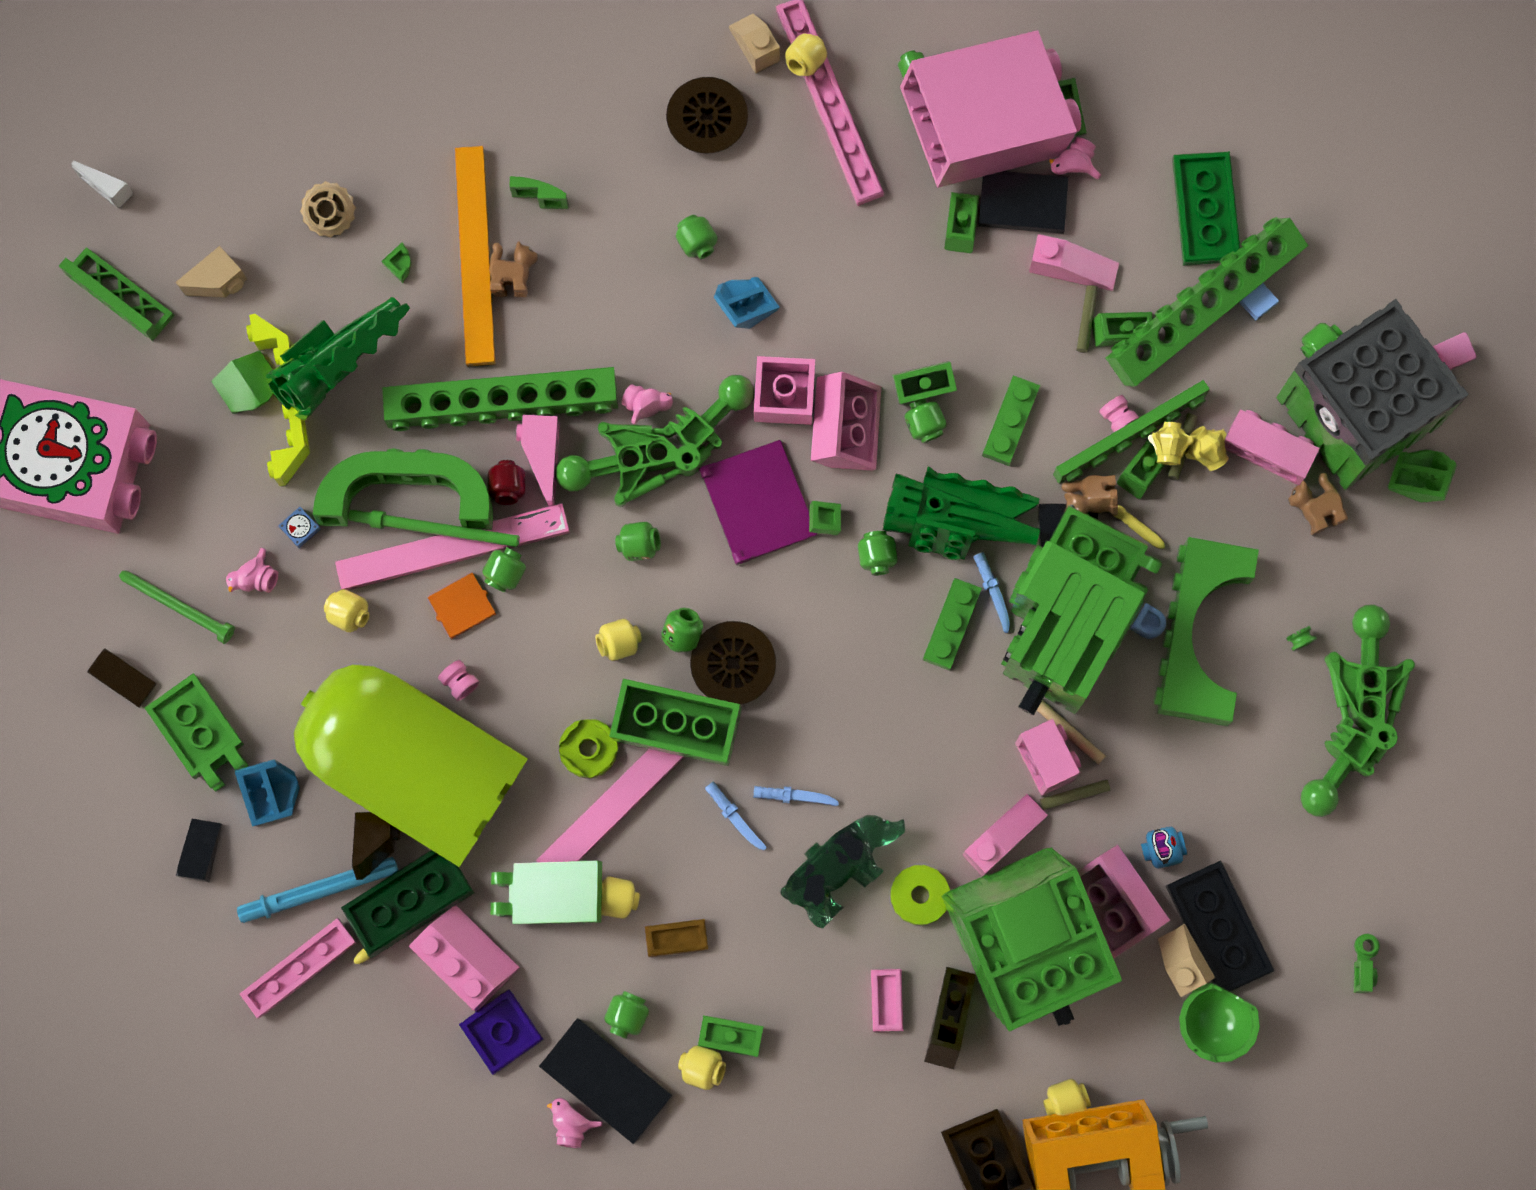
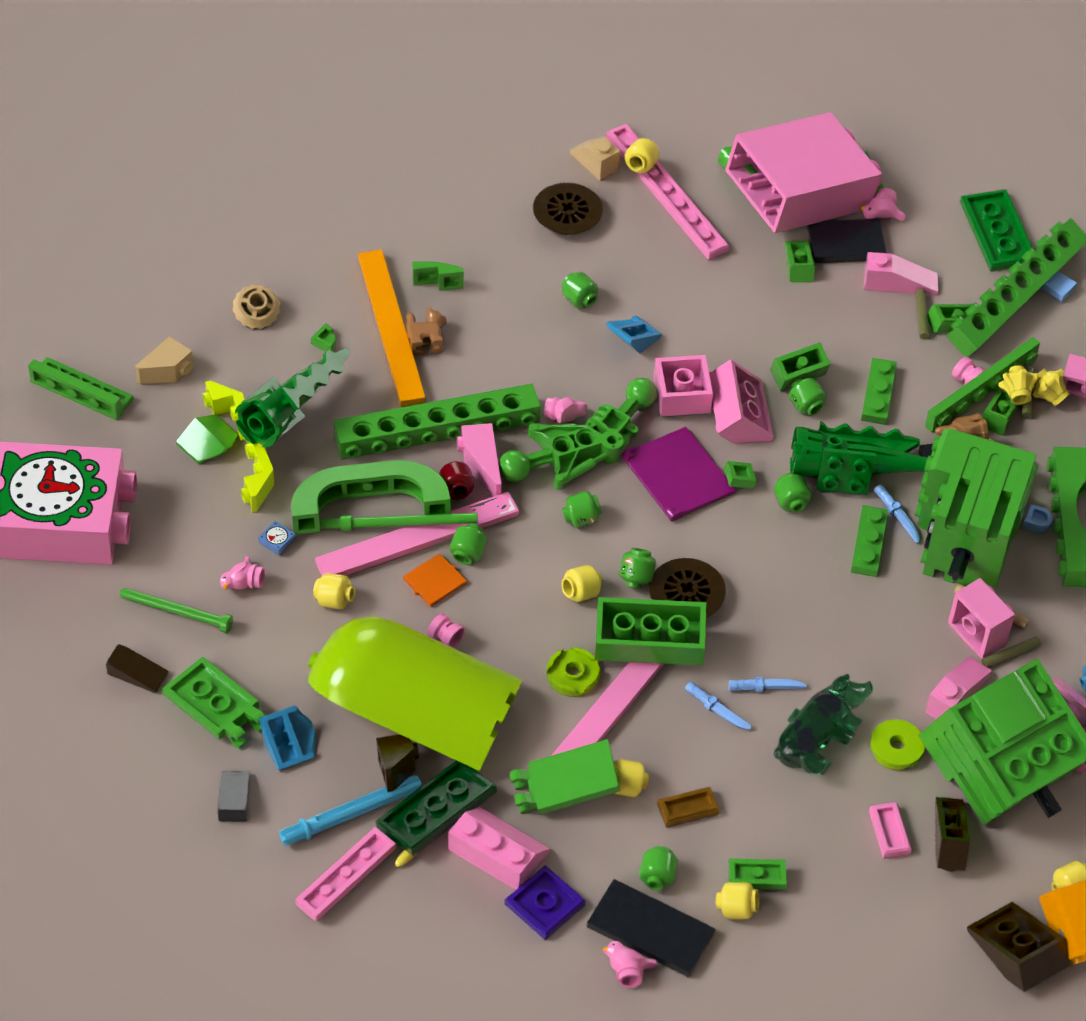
camera: 15 degrees left, 25 degrees down
(111, 188) = (54, 308): white slope -> none

